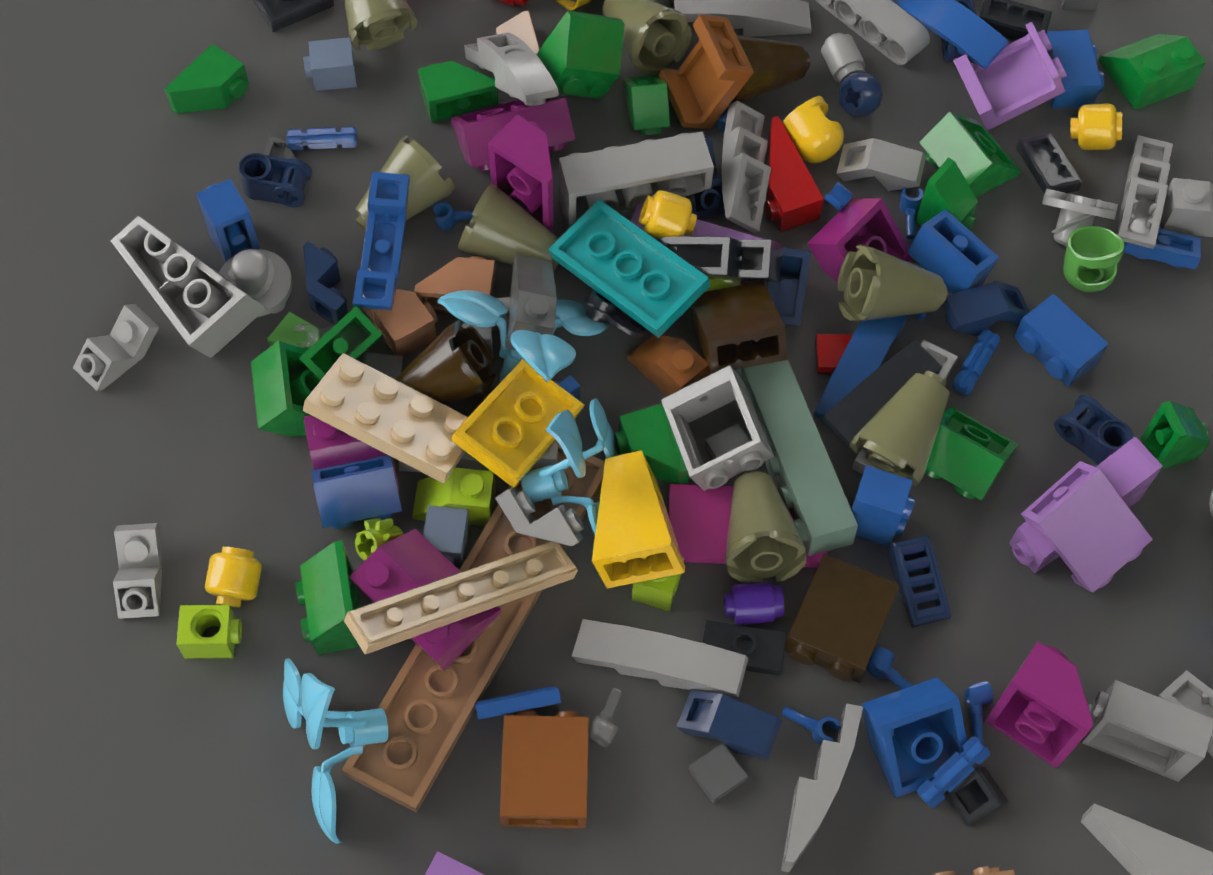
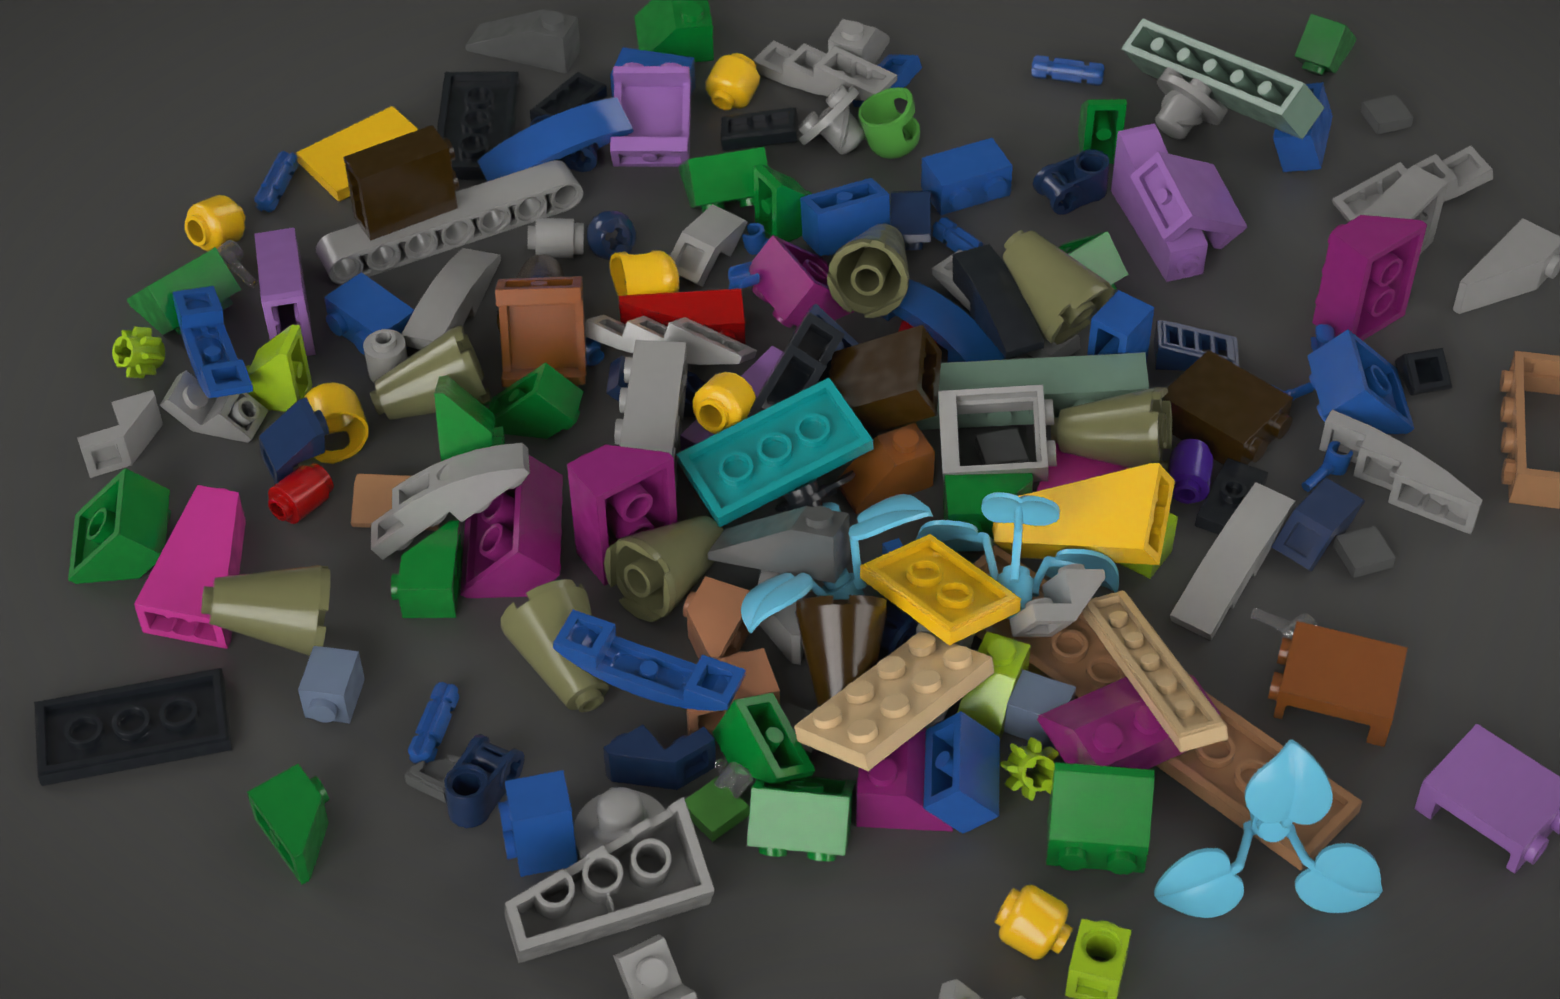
camera: 70 degrees left, 15 degrees down
(450, 217) = (608, 612): blue hand -> none
(517, 702) = (1258, 684): blue tile -> none
(953, 772) = (1404, 373): blue axle -> none

